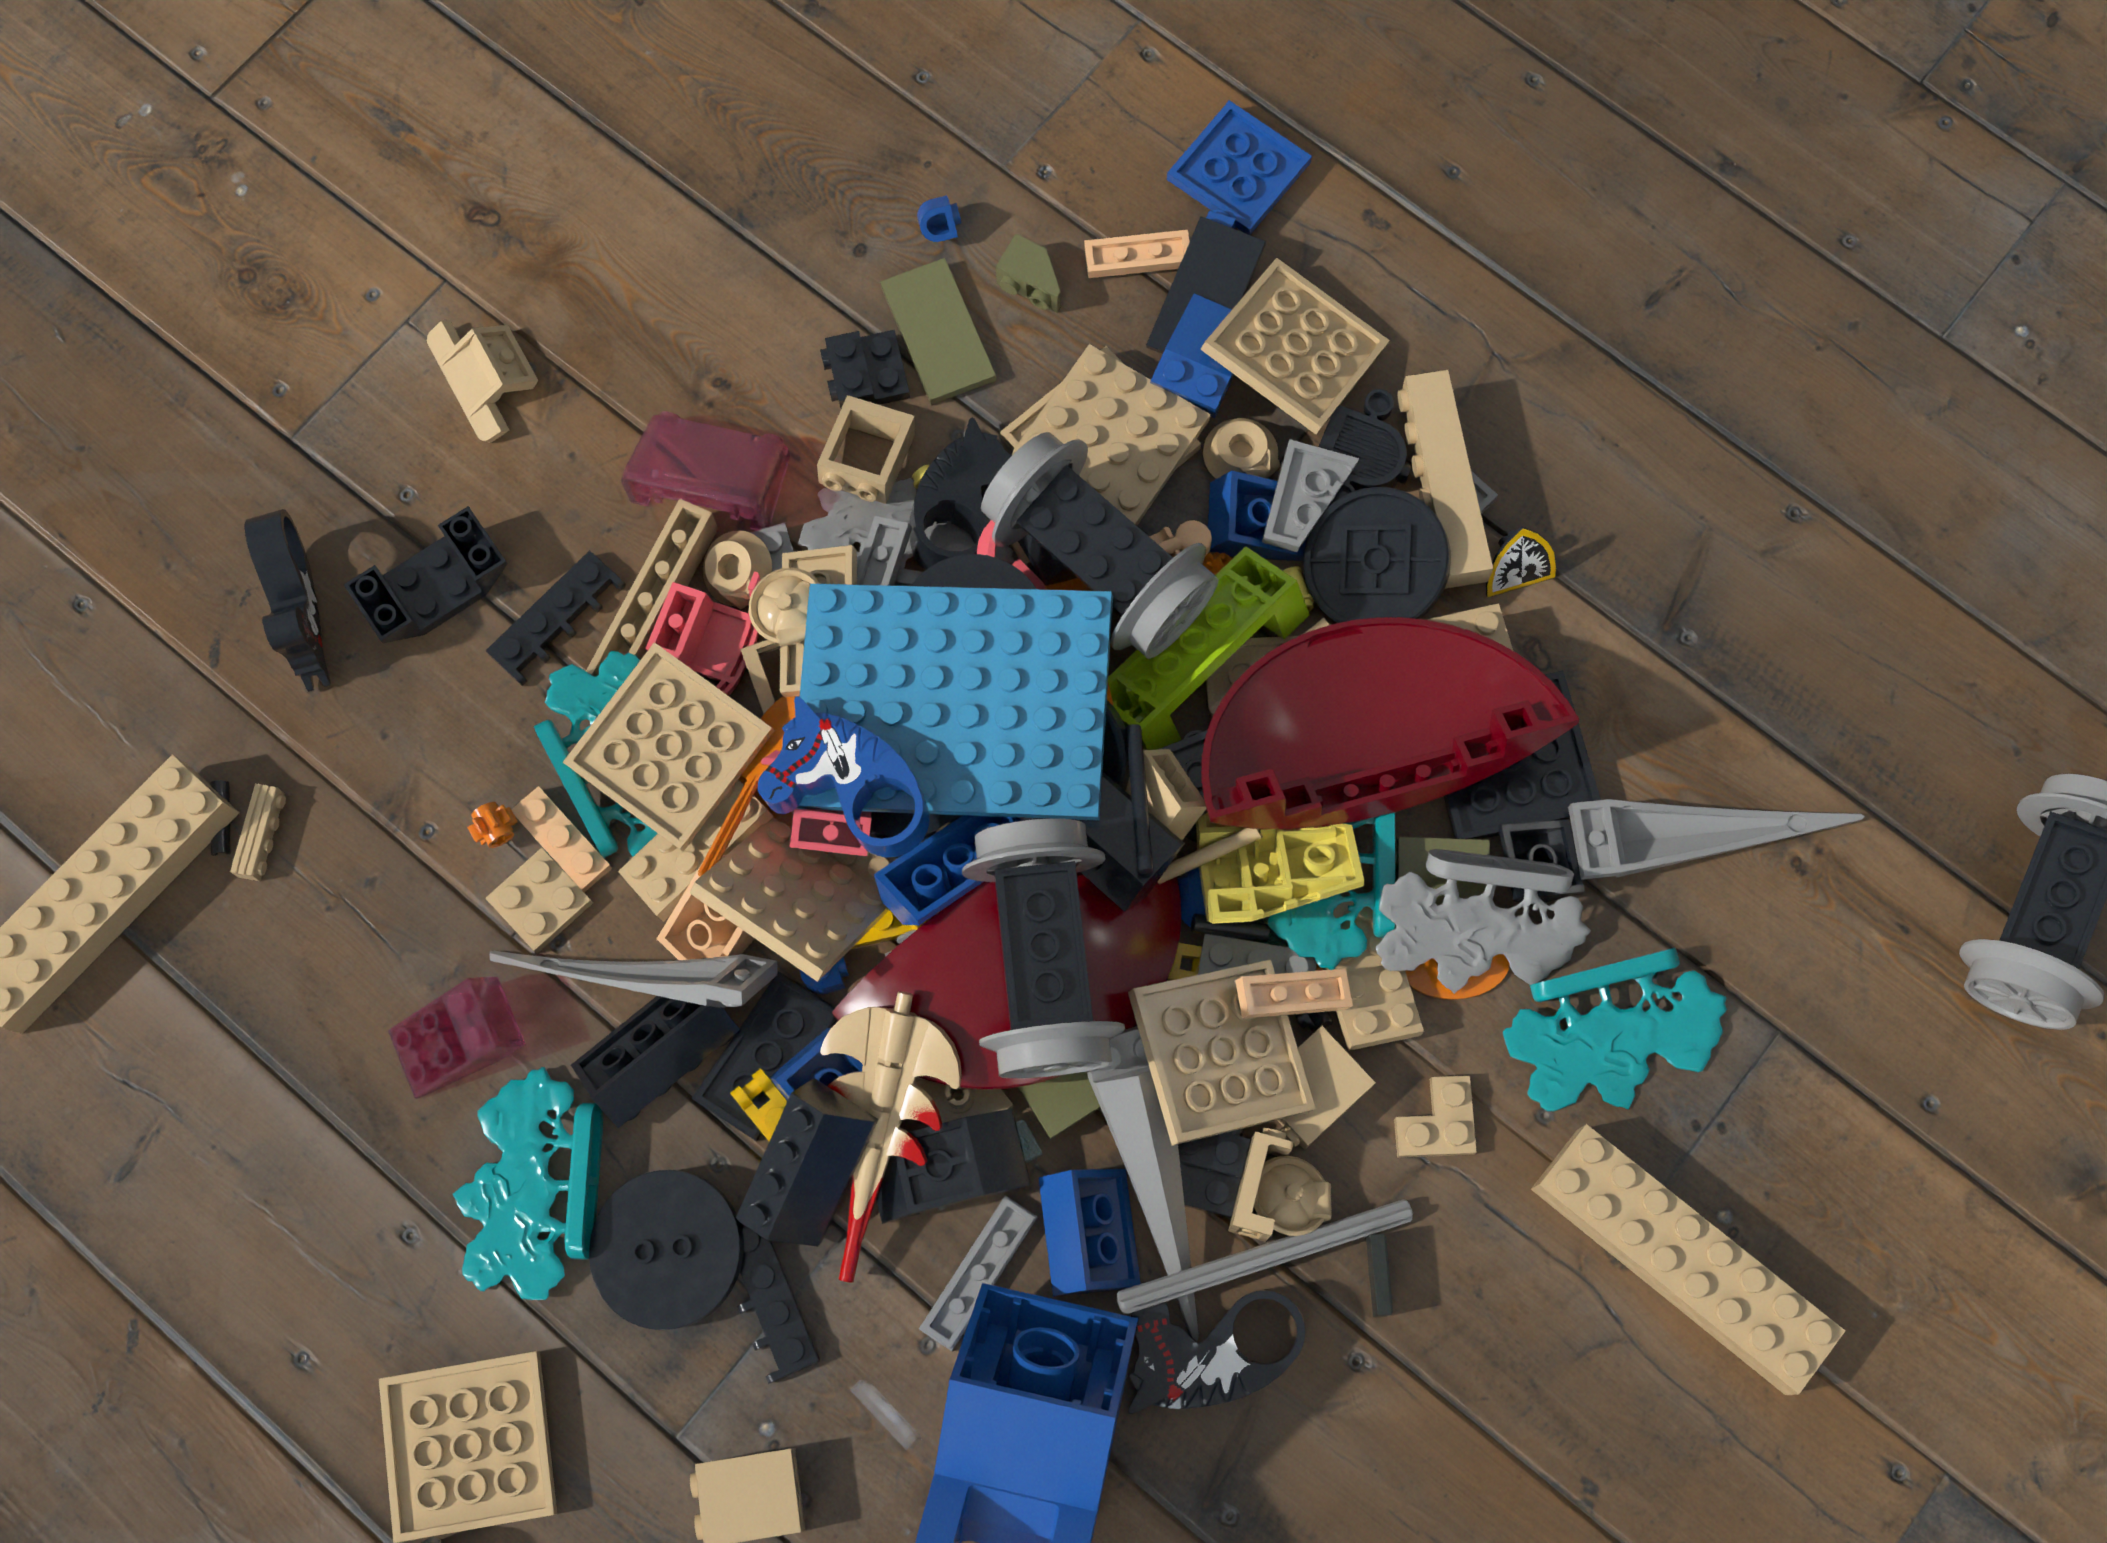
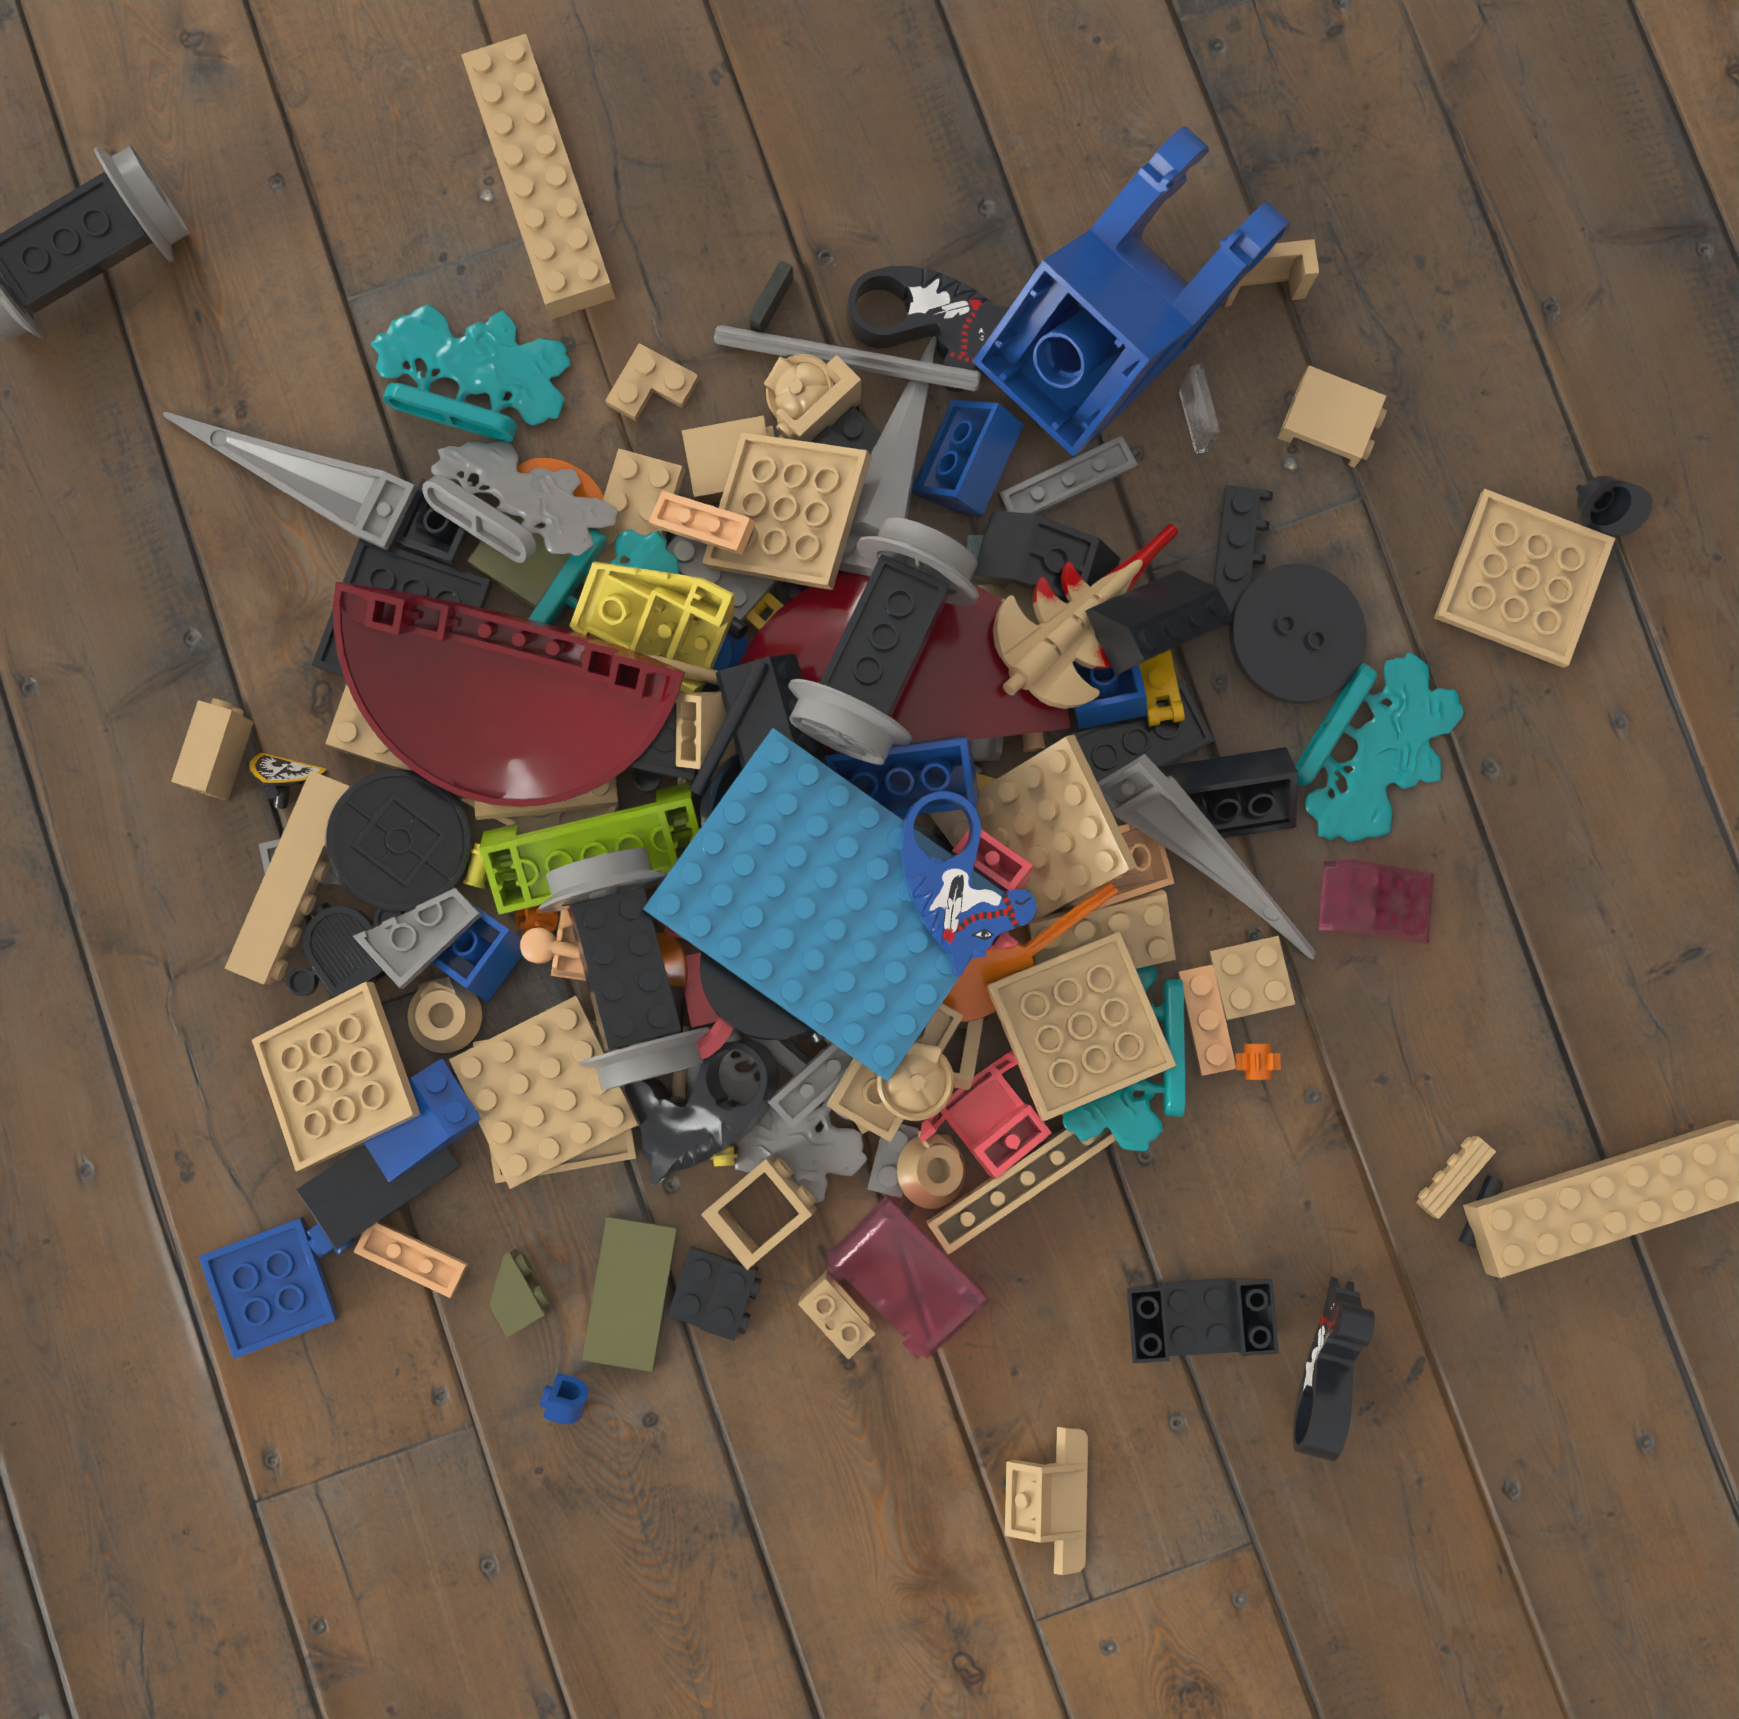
camera: 150 degrees left, 10 degrees up
(553, 615) = (1110, 1226): black hinge -> none
(734, 399) = (832, 1305): none -> tan window
(1592, 542) = (213, 749): none -> tan brick

